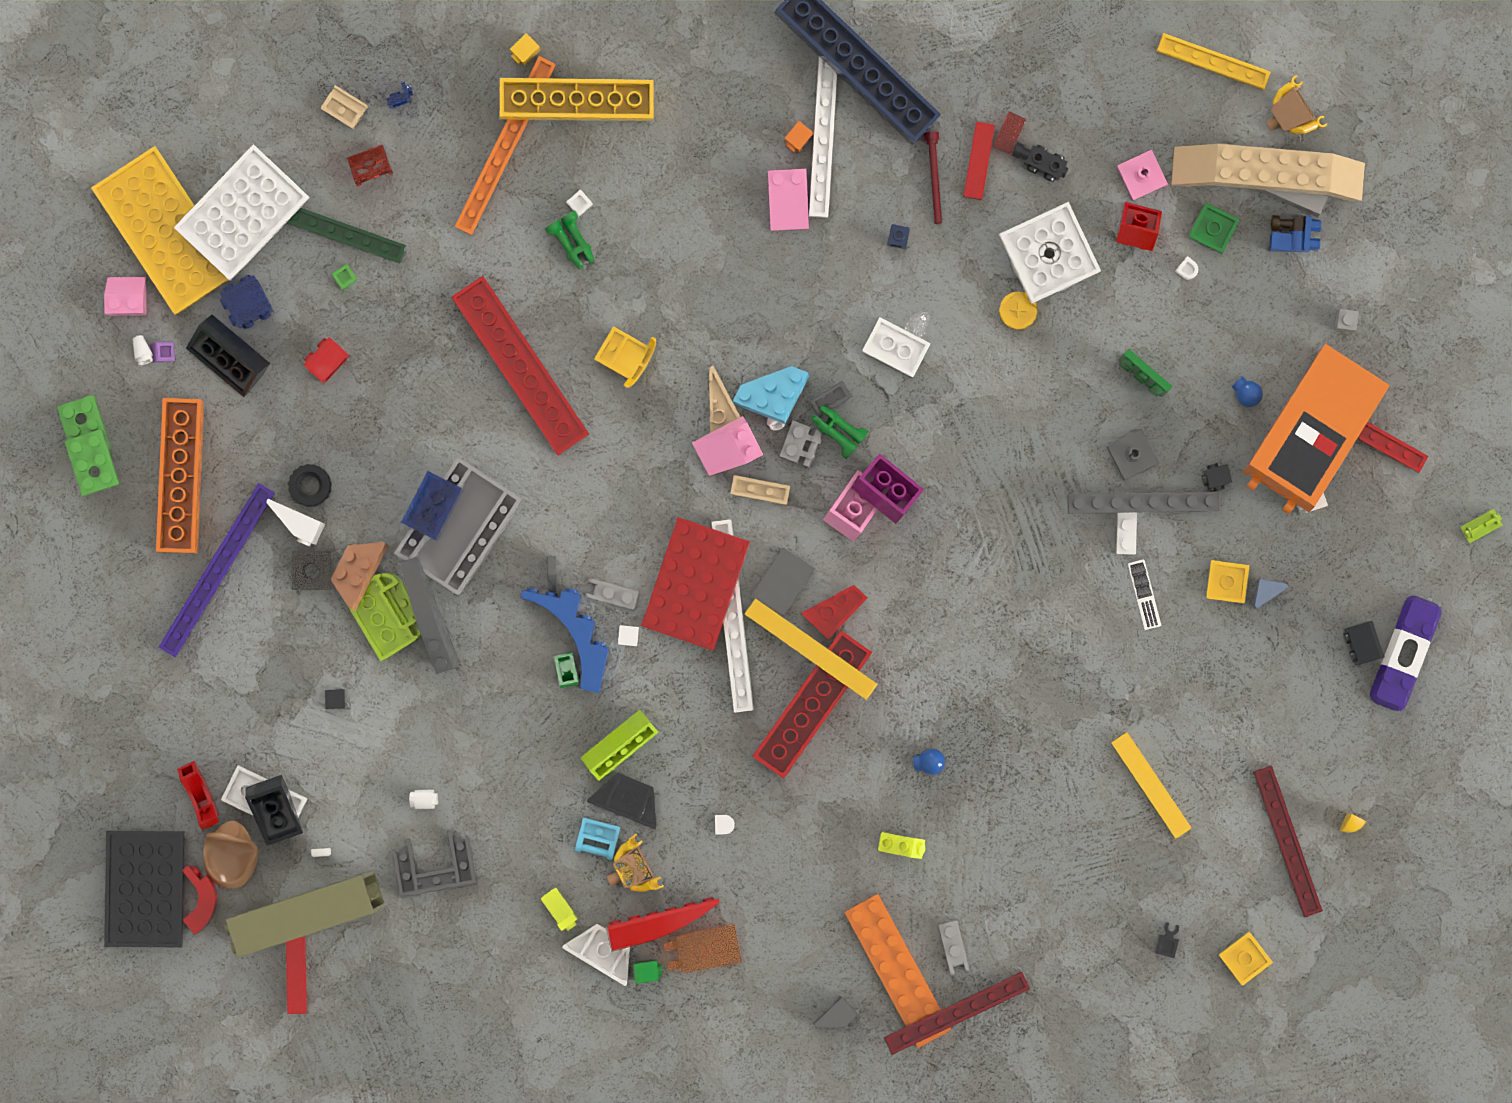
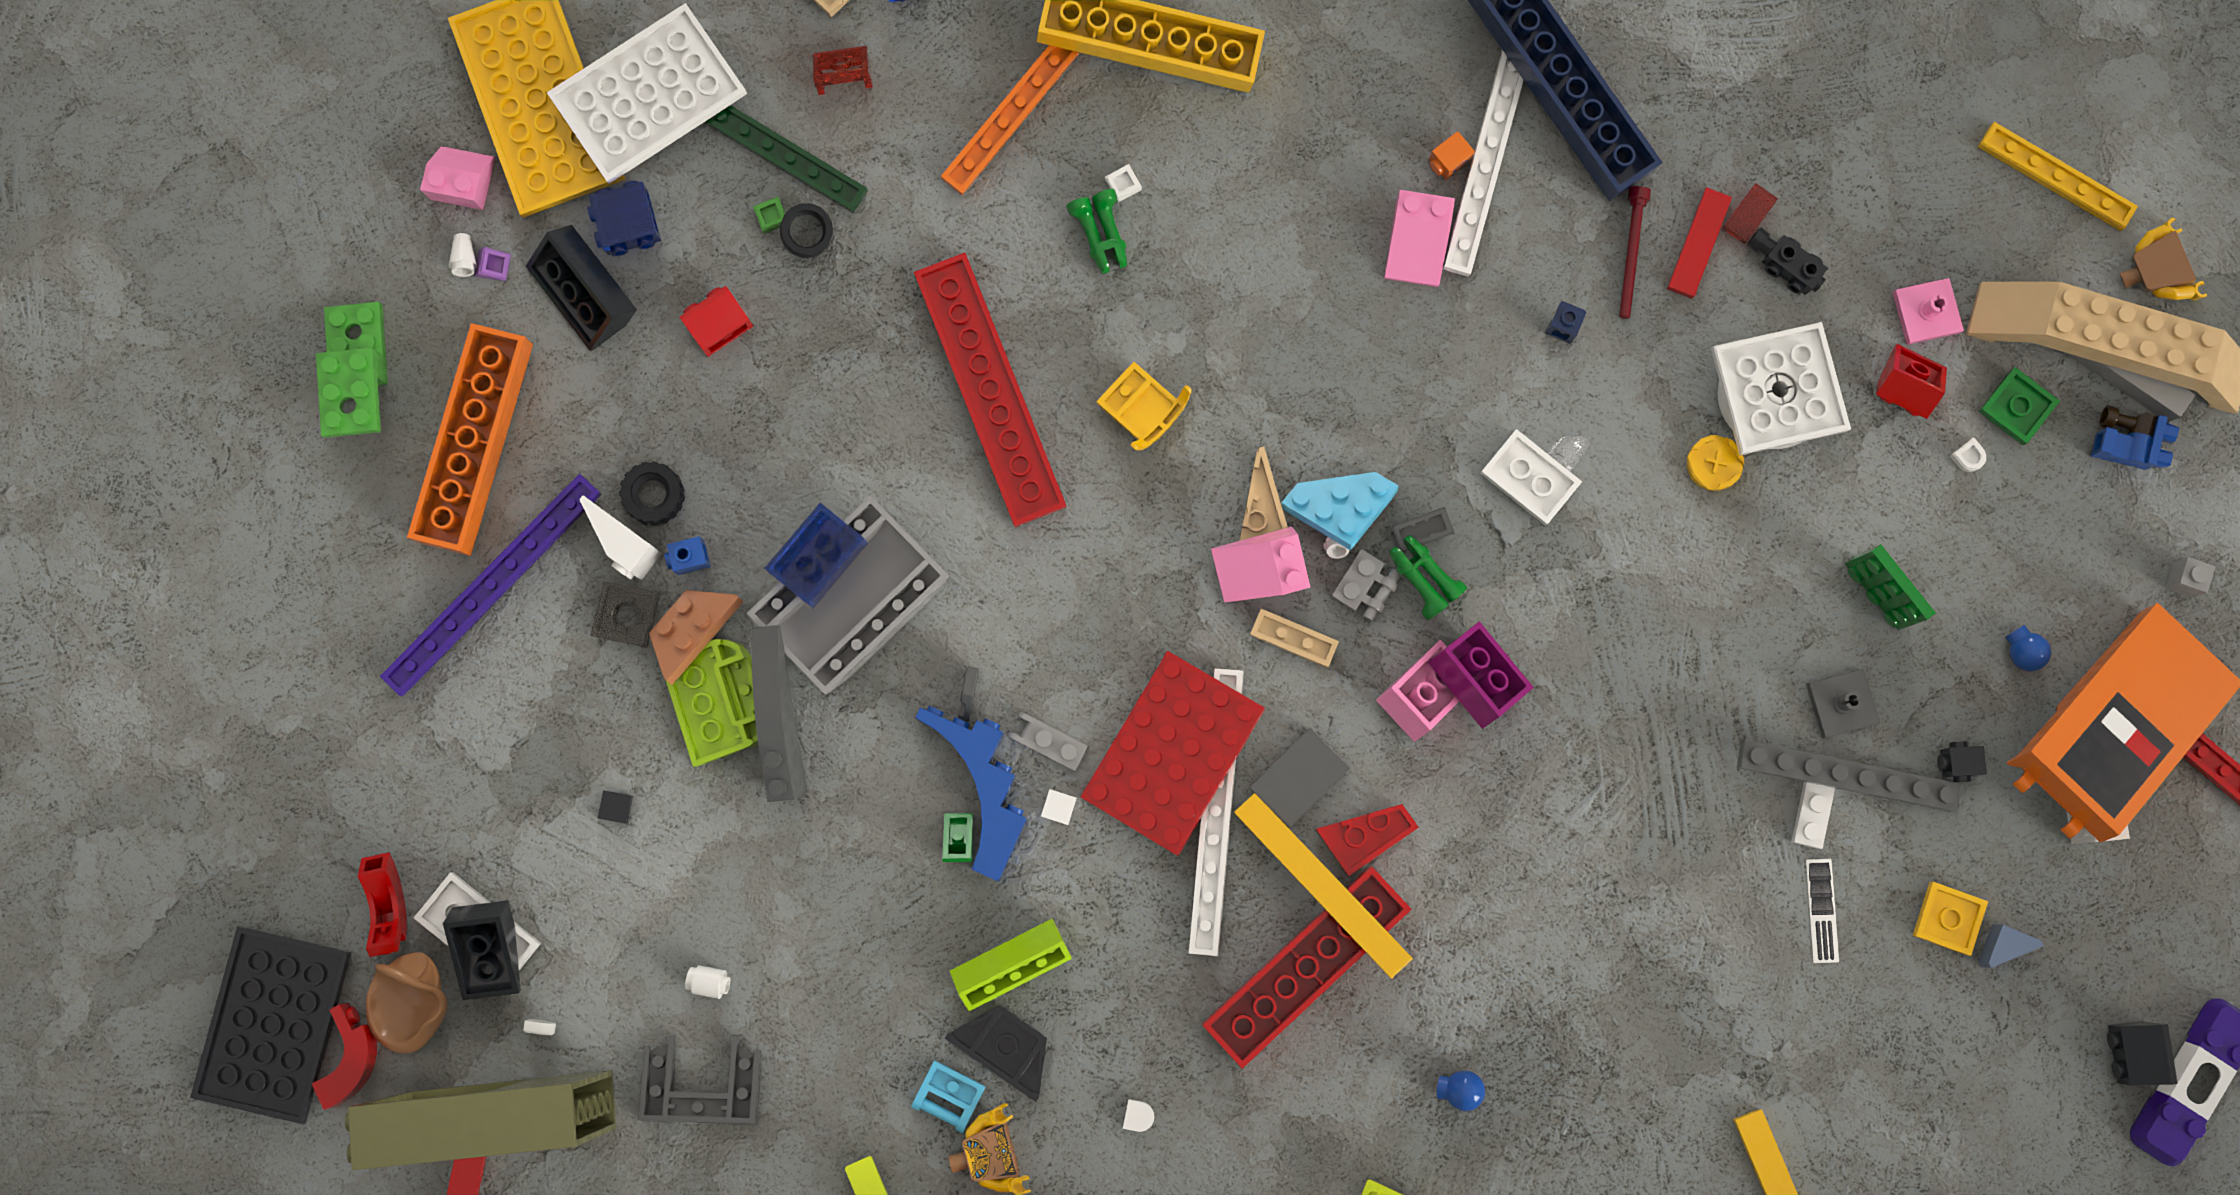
camera: 15 degrees right, 5 degrees down
(343, 522) = (687, 556): none -> blue brick
(357, 281) = (803, 209): none -> black tyre

